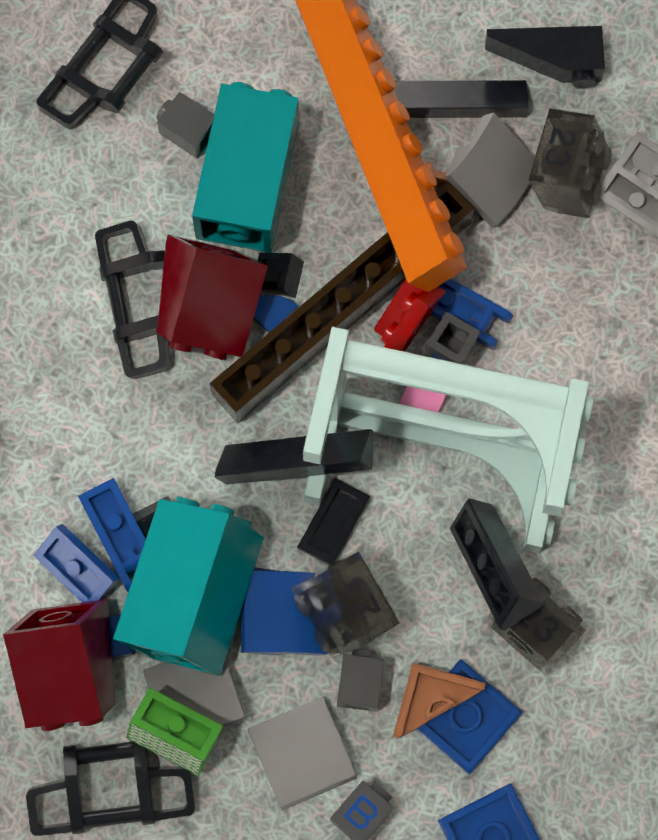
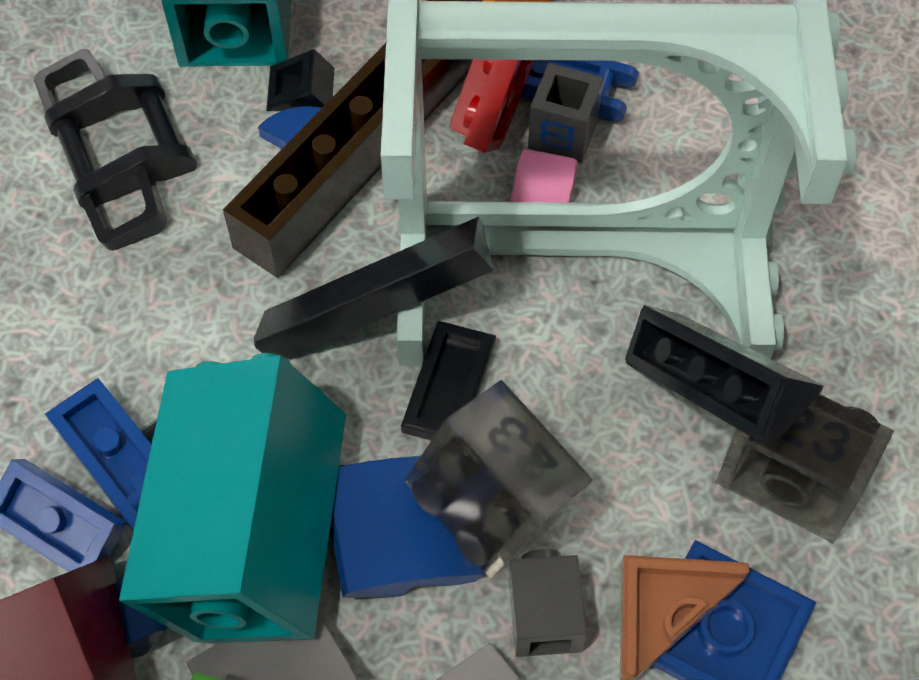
camera: 10 degrees left, 15 degrees down
(208, 297) = (204, 105): dark red slope -> none

